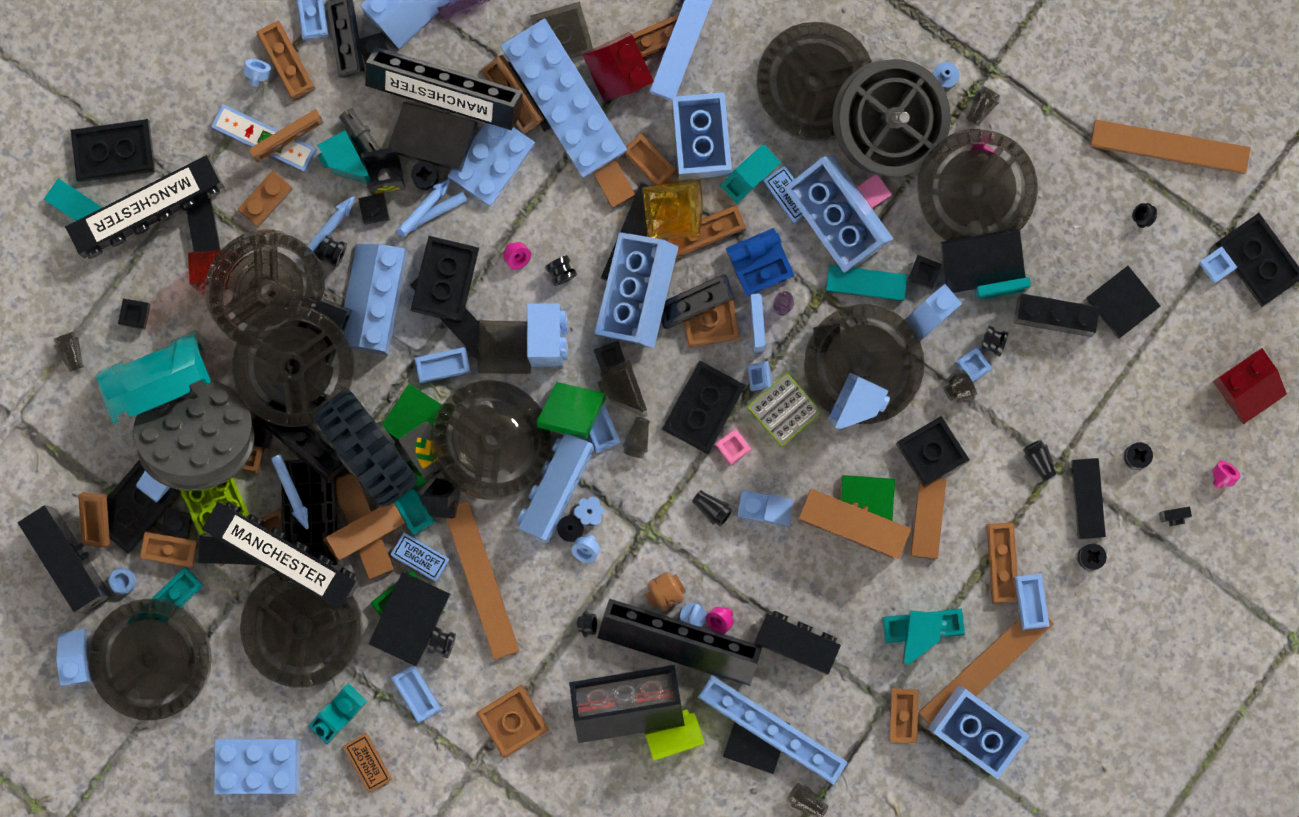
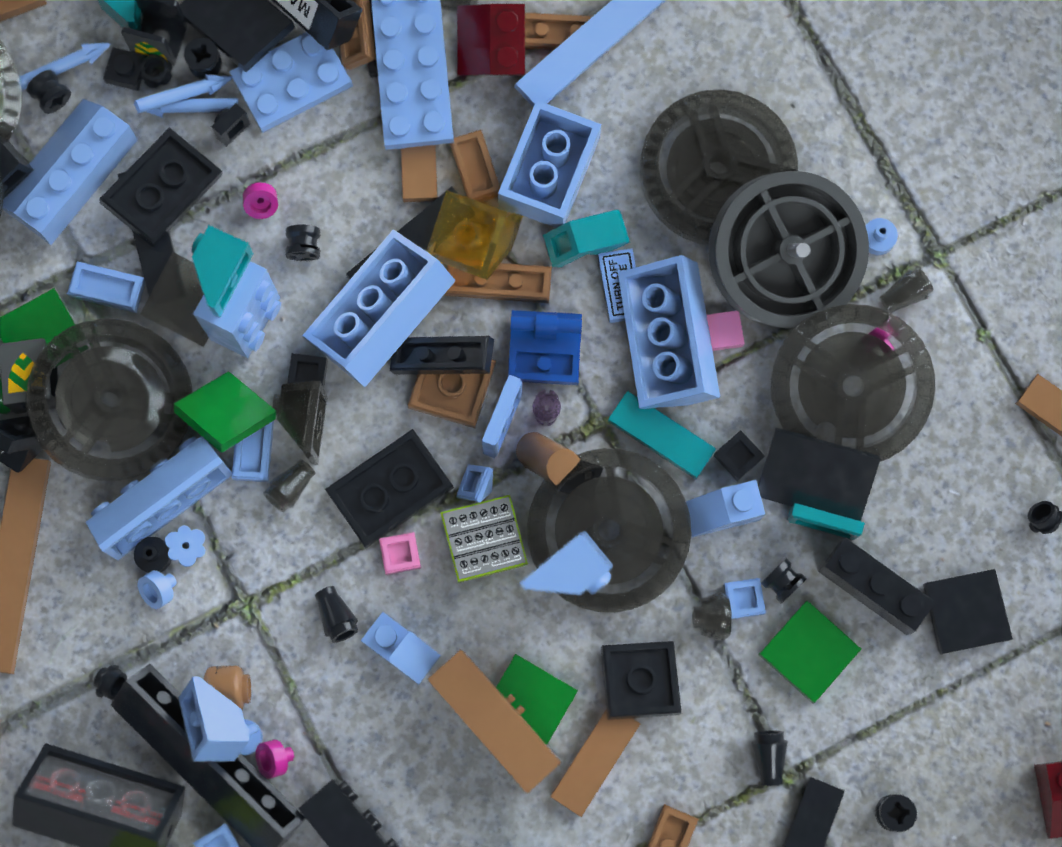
camera: 20 degrees right, 5 degrees down
(403, 202) = (152, 63): none -> black plate
(467, 212) = (230, 124): none -> black plate
(529, 316) = (219, 265): none -> teal slope
(672, 615) = (212, 723): none -> light blue slope
(799, 336) = (546, 457): none -> medium nougat brick
(1033, 379) = (810, 652): none -> green tile

